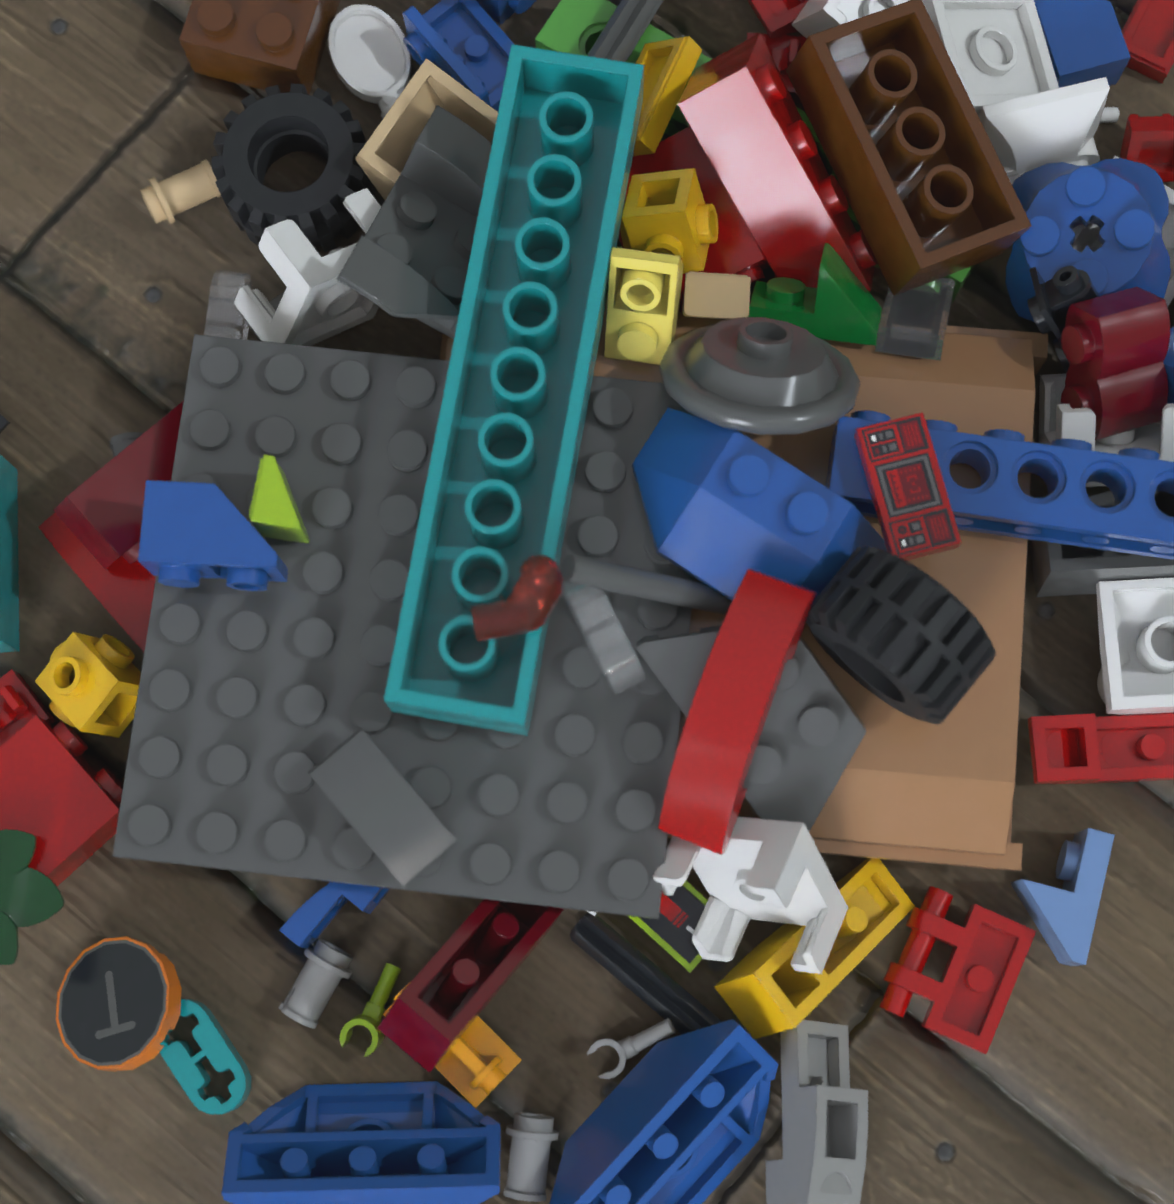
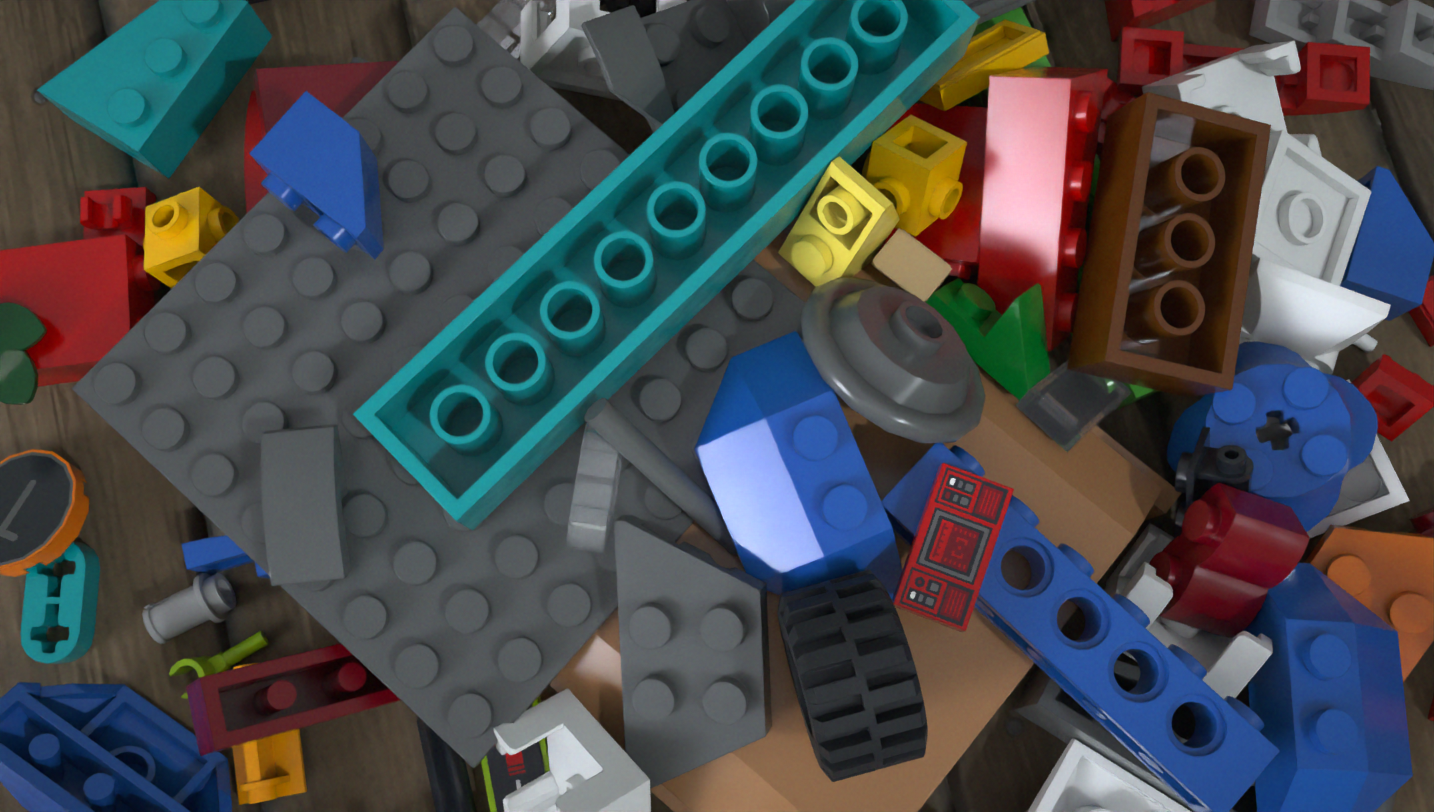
camera: 30 degrees right, 0 degrees up
(273, 505) = (406, 184): lime slope -> none
(527, 605) = (531, 417): clear red arm -> none
(732, 709) = (658, 631): red slope -> none

